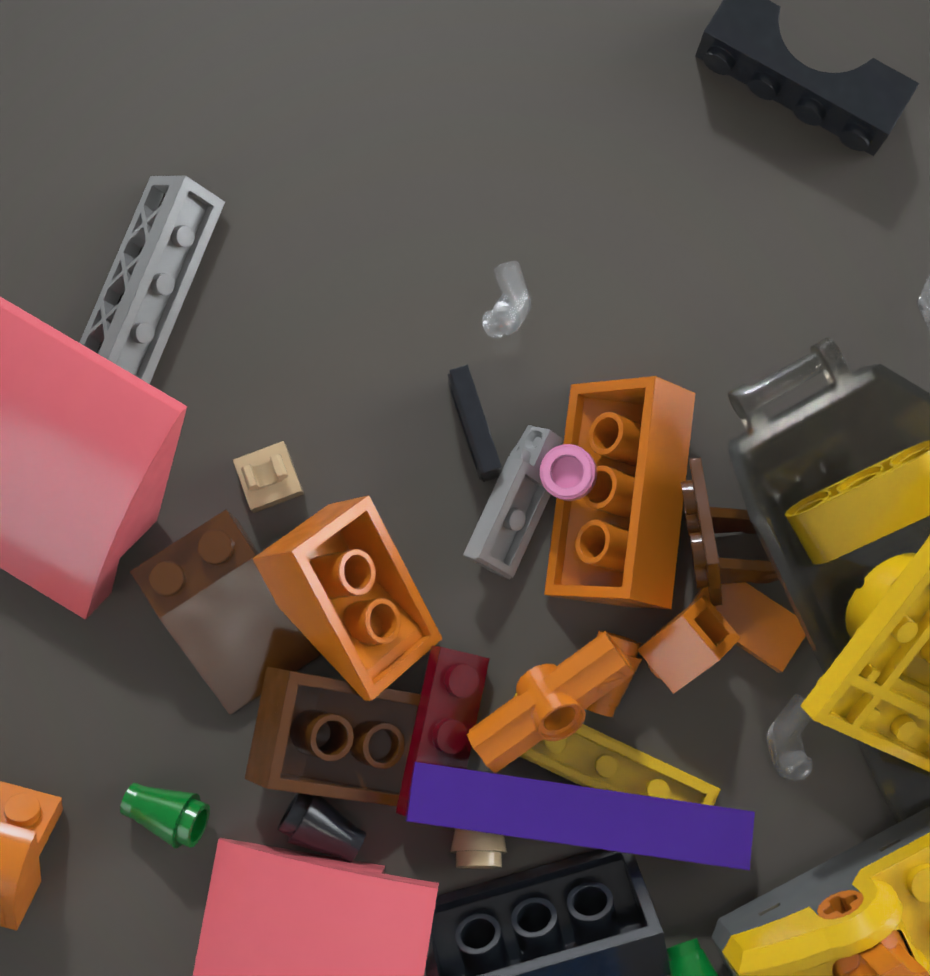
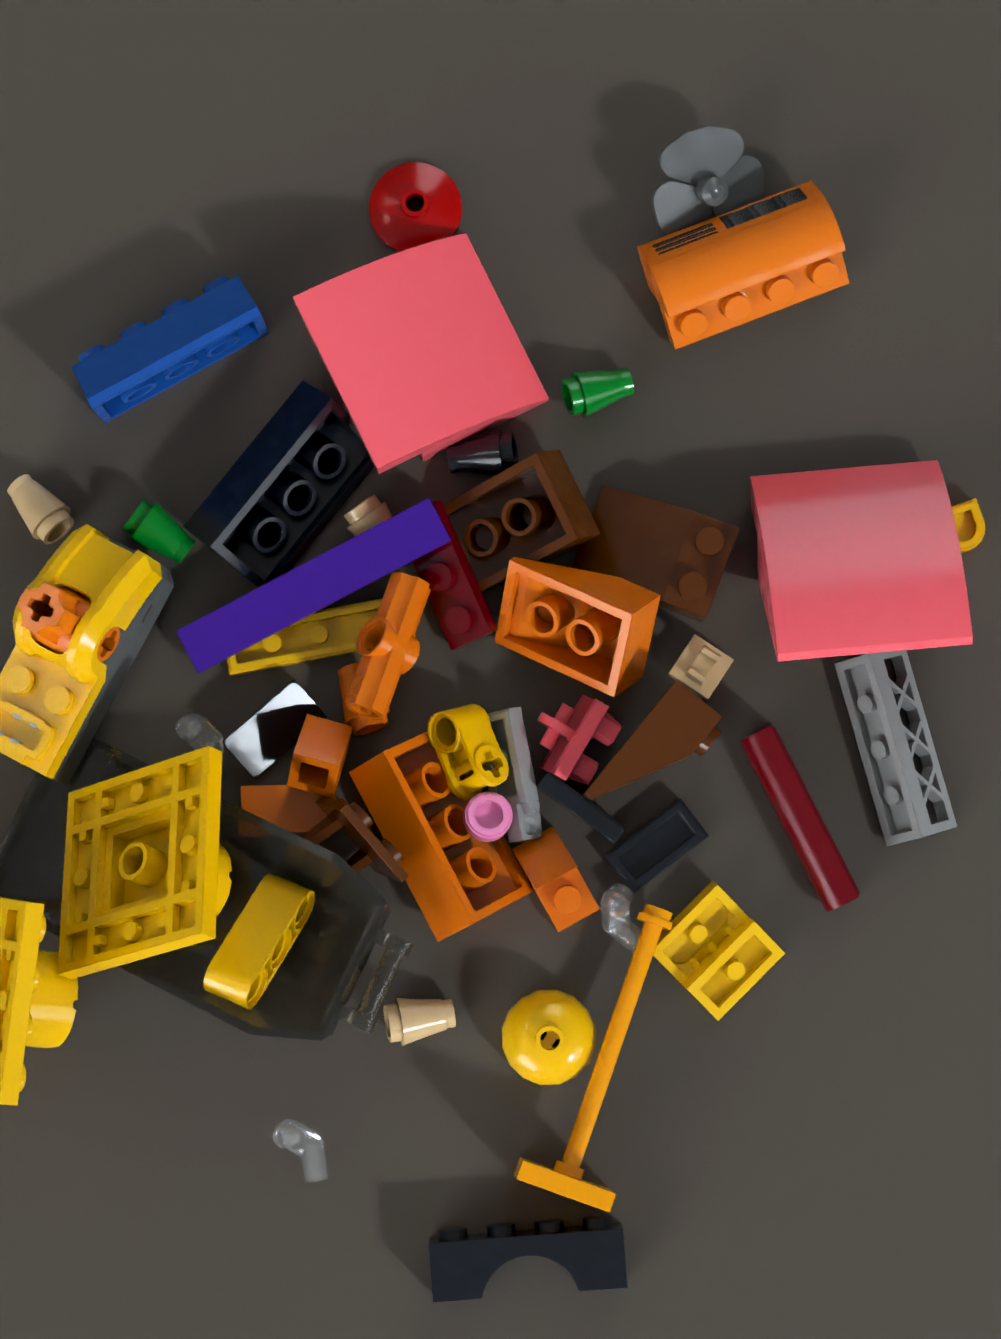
camera: 140 degrees right, 5 degrees up
(281, 276) = (800, 818): none -> dark red brick
(356, 426) = (667, 735): none -> reddish brown slope
(428, 345) = (656, 845): none -> black tile
(434, 495) = (569, 735): none -> coral hips
(445, 219) = (716, 950): none -> yellow slope
(541, 555) = (466, 747): none -> yellow piece
(543, 378) = (556, 879): none -> orange slope
(649, 245) = (563, 1020): none -> yellow cylinder
(713, 705) = (272, 729): none -> black slope
(726, 102) = (567, 1174): none -> light orange tile
(759, 341) = (417, 1018): none -> tan cone

